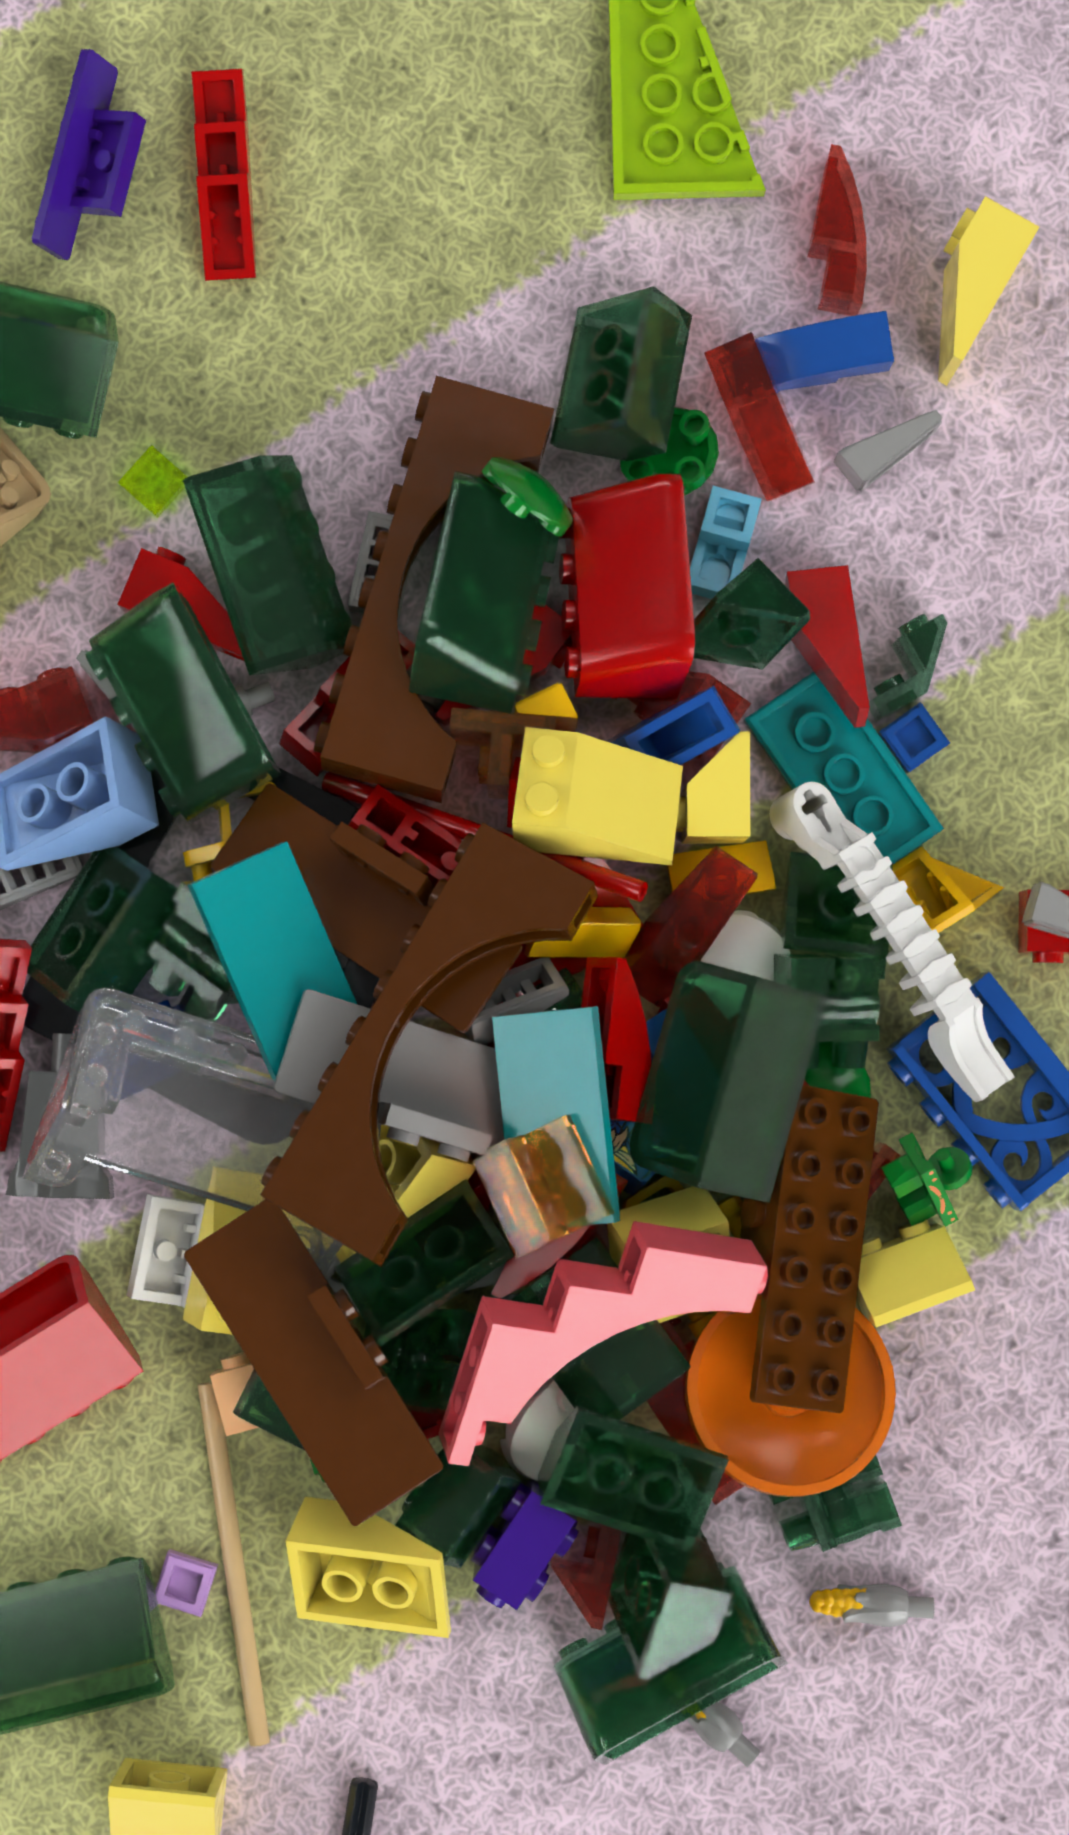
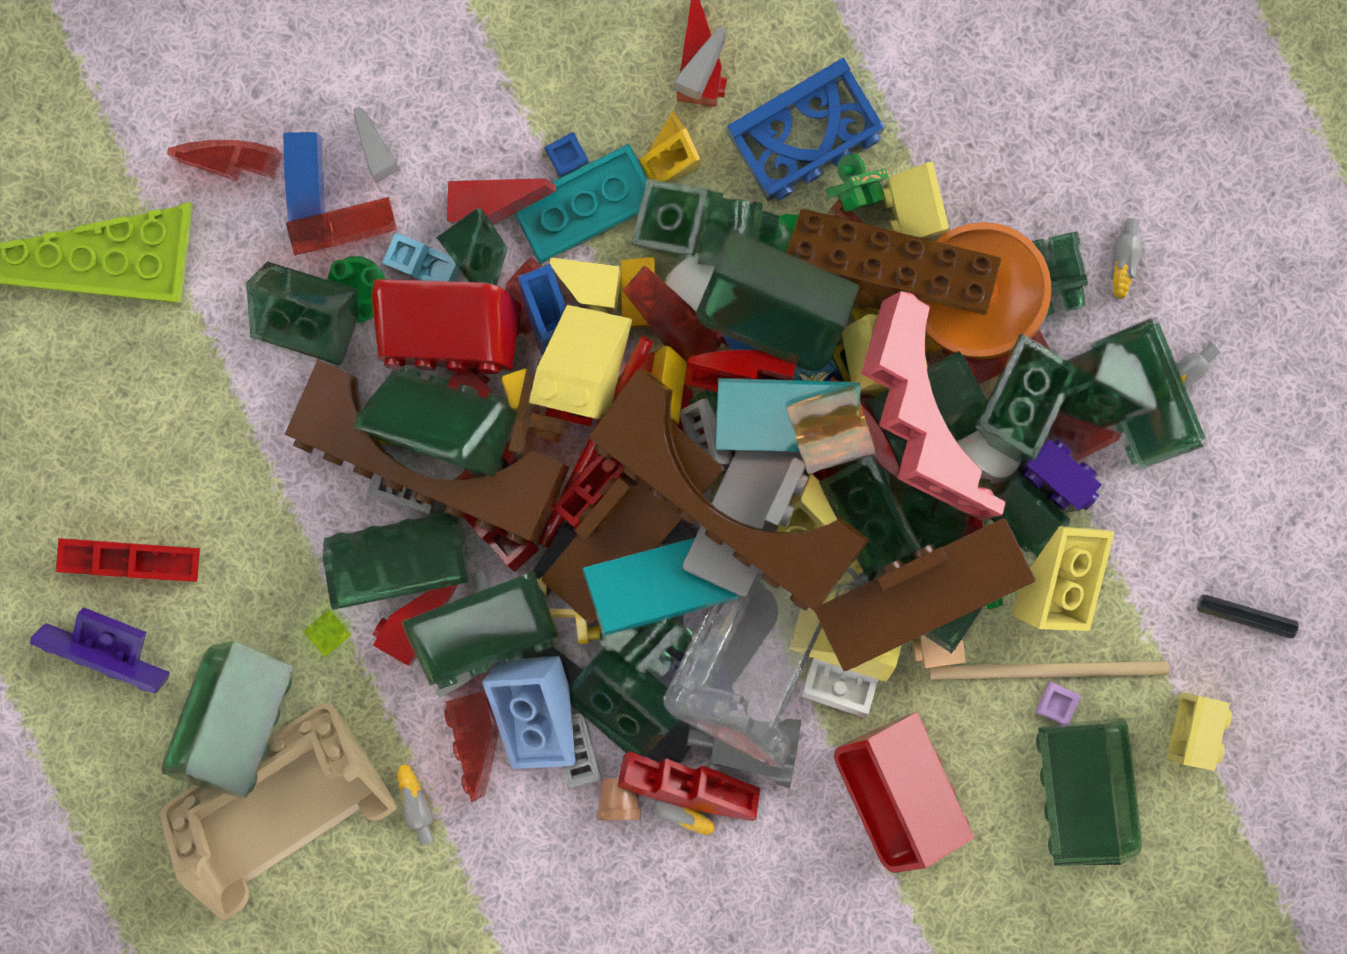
camera: 80 degrees left, 0 degrees up
(528, 493) = (373, 381): green dish -> none
(918, 654) = (513, 144): clear green slope -> none
(959, 1037) = (769, 150): white piece -> none
(982, 260) = (259, 65): light yellow slope -> none

